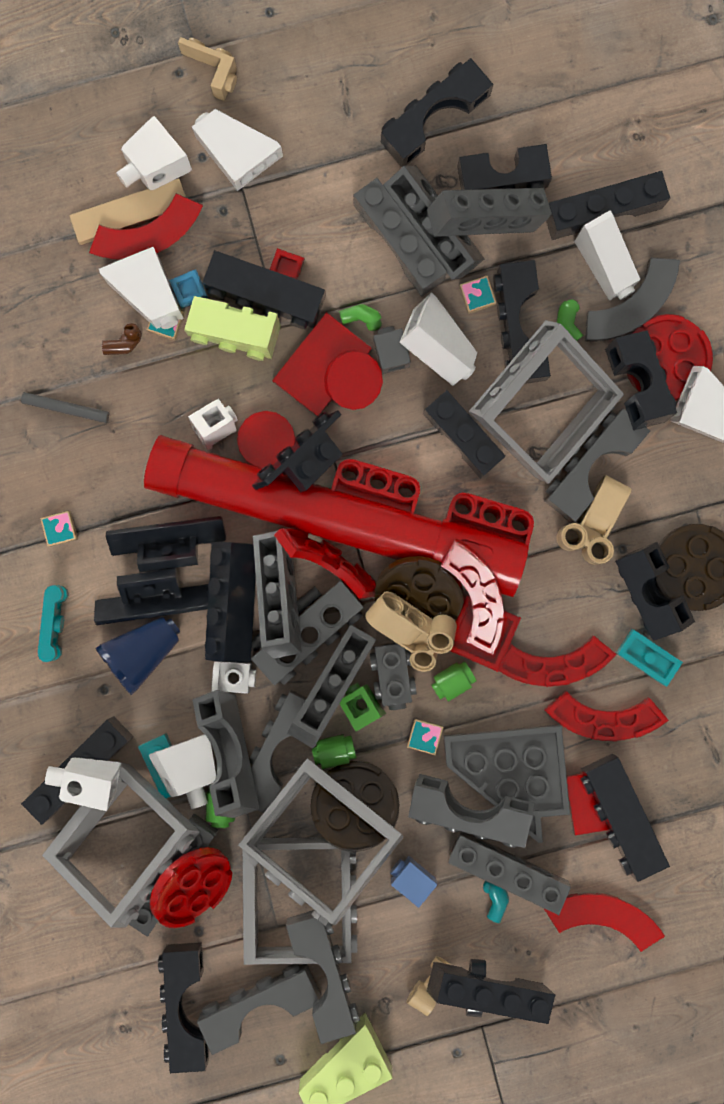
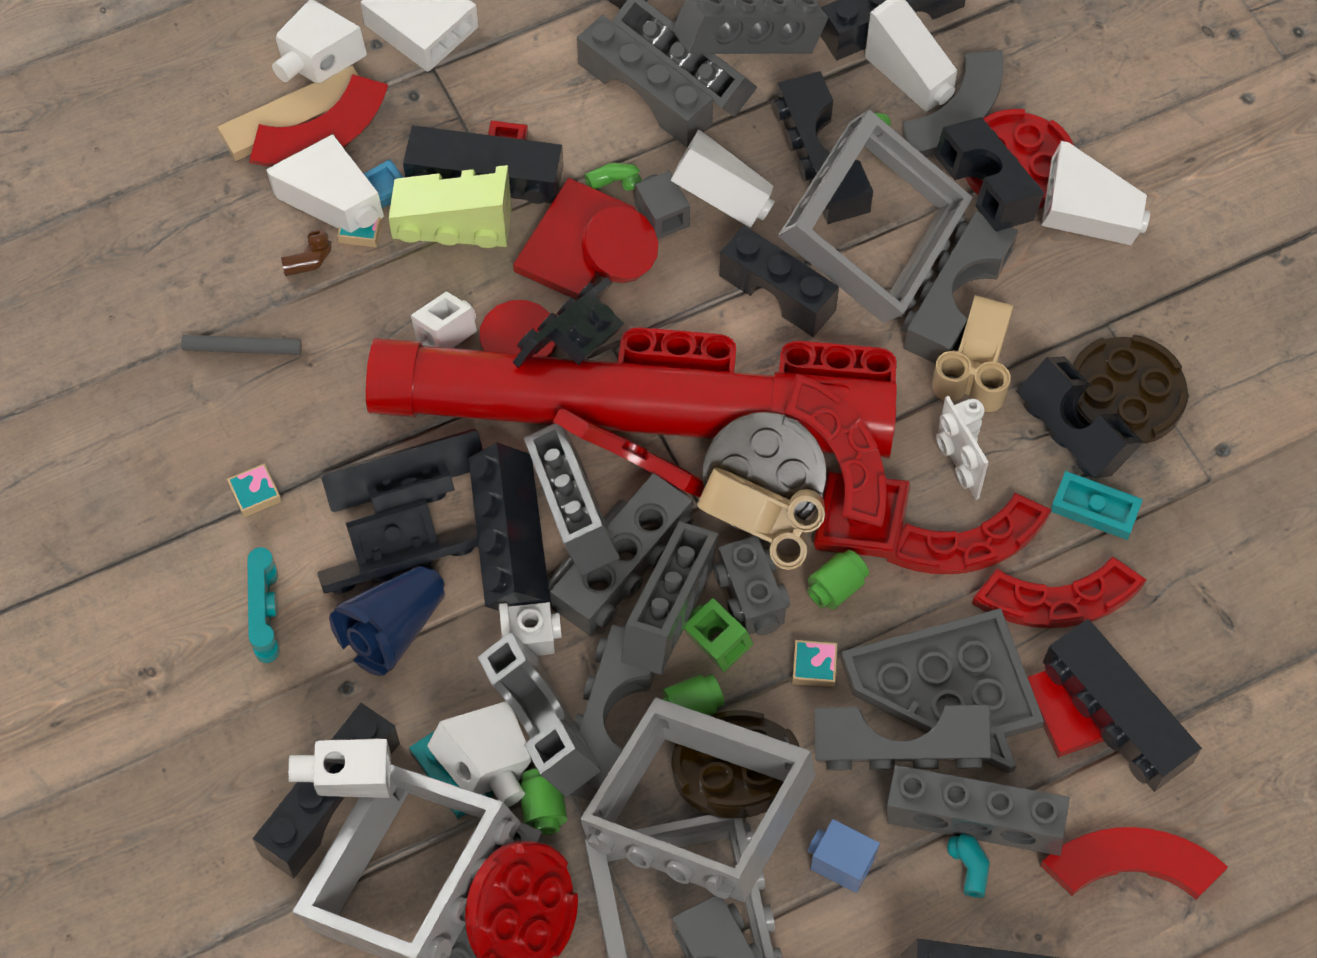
camera: 10 degrees left, 25 degrees down
(477, 294) = (757, 130): tile -> none
(562, 589) = (959, 439): none -> white hinge

